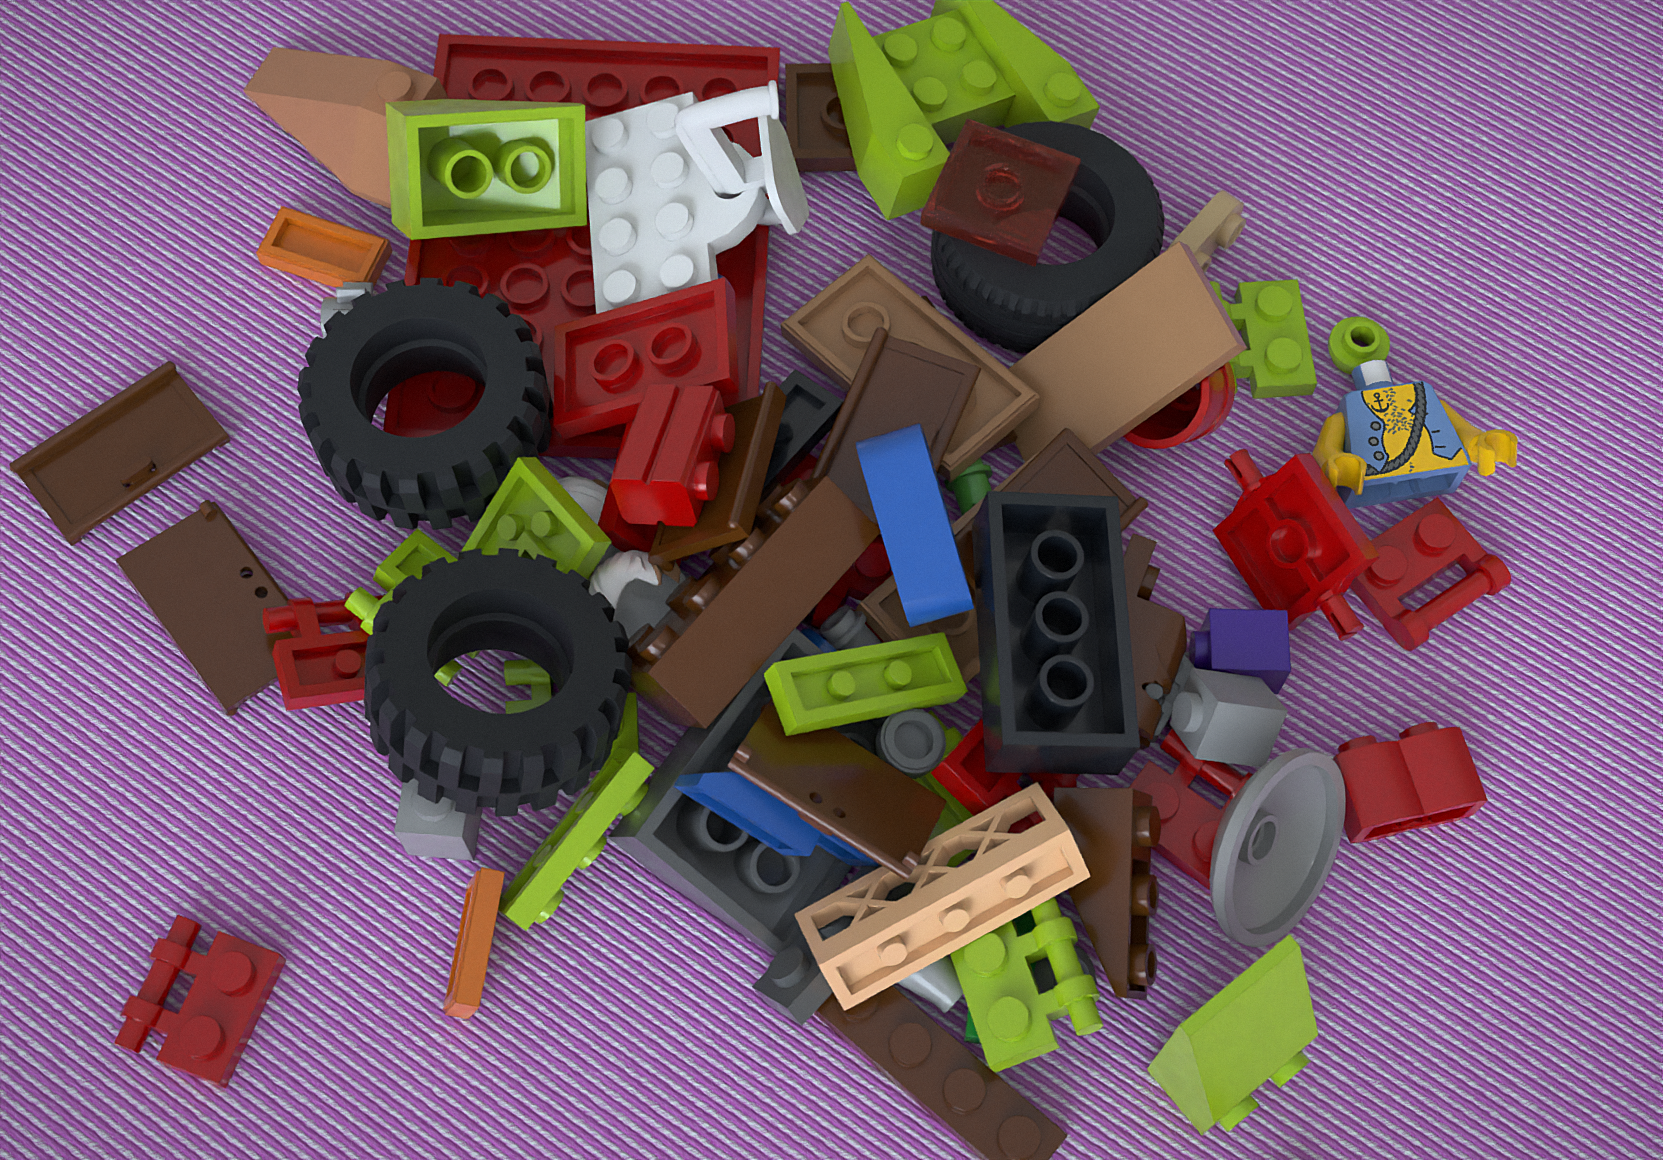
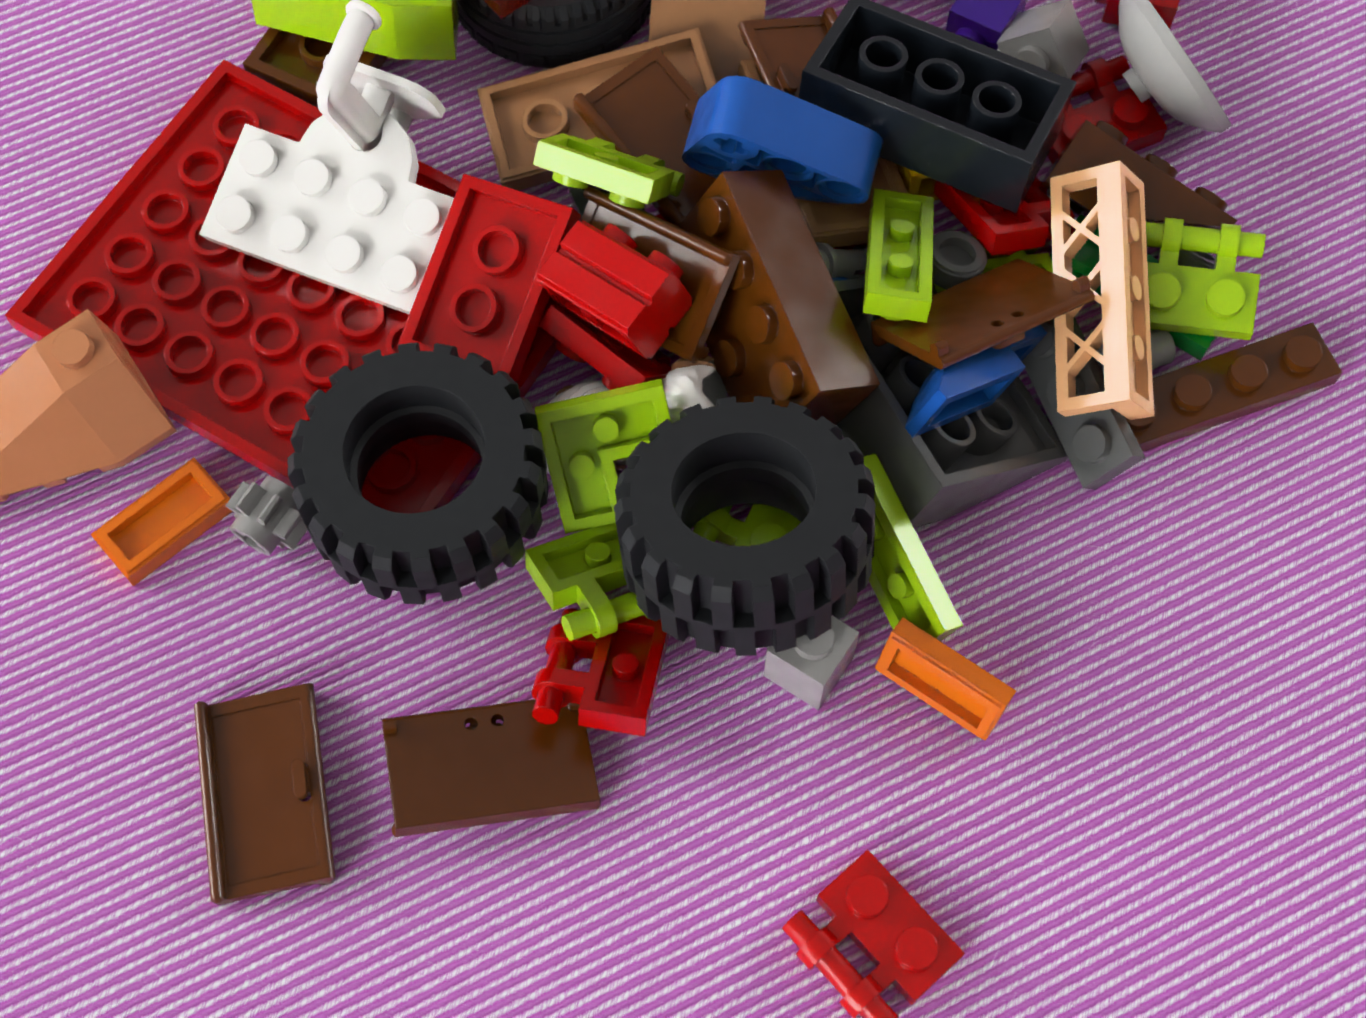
camera: 60 degrees left, 0 degrees up
(485, 166) = (203, 321): lime slope -> none
(798, 388) = (596, 162): none -> lime plate
(1240, 1041) = (1301, 165): lime slope -> none

